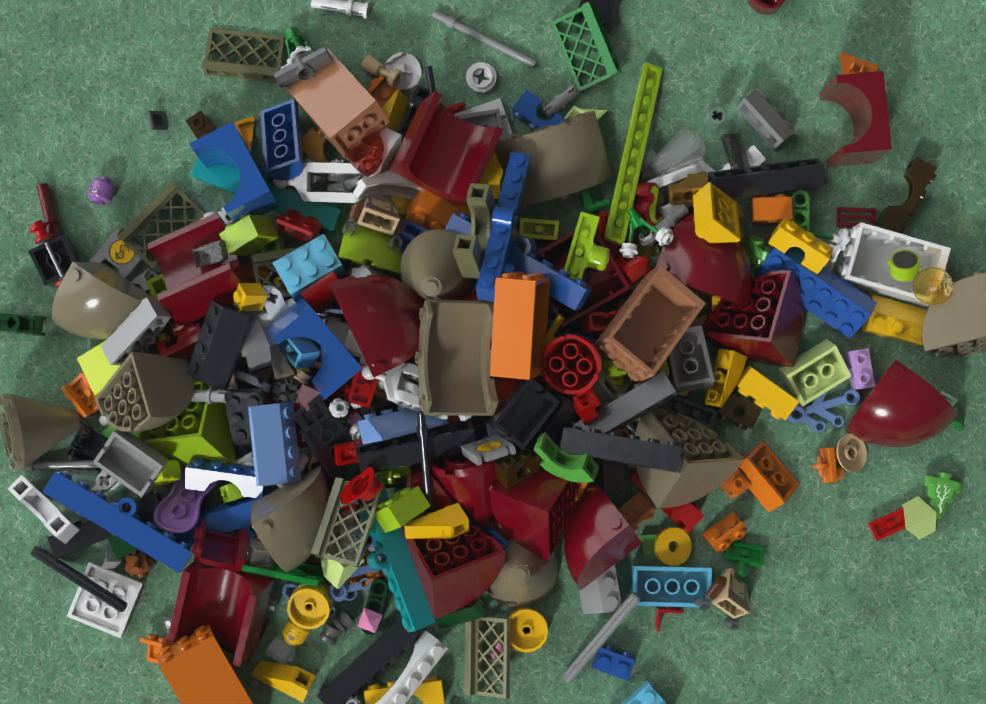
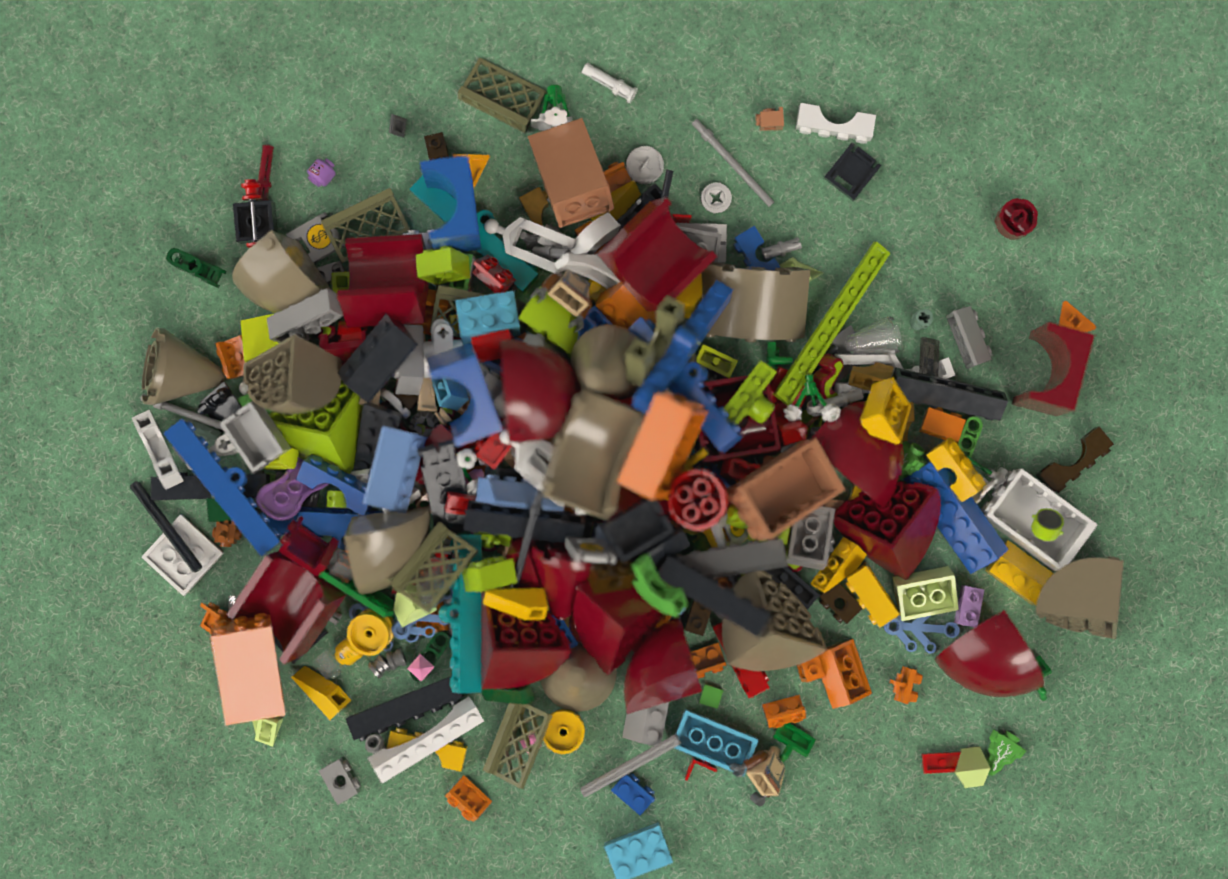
camera: 25 degrees right, 0 degrees up
(110, 561) = (202, 520): light grey slope -> none
(210, 254) = (400, 270): clear smoke tile -> none
(212, 396) = (353, 403): light grey pin -> none
(250, 297) = (422, 324): yellow brick -> none
(282, 141) = (507, 189): blue brick -> none
(302, 67) = (552, 127): dark grey piece -> none
(362, 487) = (459, 540): red piece -> none
(367, 155) = (582, 232): clear red brick -> none
(374, 67) = (620, 152): tan piece -> none
(585, 406) = (695, 543): red leg -> none
(598, 36) = (841, 209): green fence -> none
(682, 550) = (740, 708): yellow tile -> none
(851, 453) = (931, 682): tan dish -> none
(872, 217) = (1004, 455): dark red tile -> none
(932, 277) = (1066, 545): clear yellow dish -> none

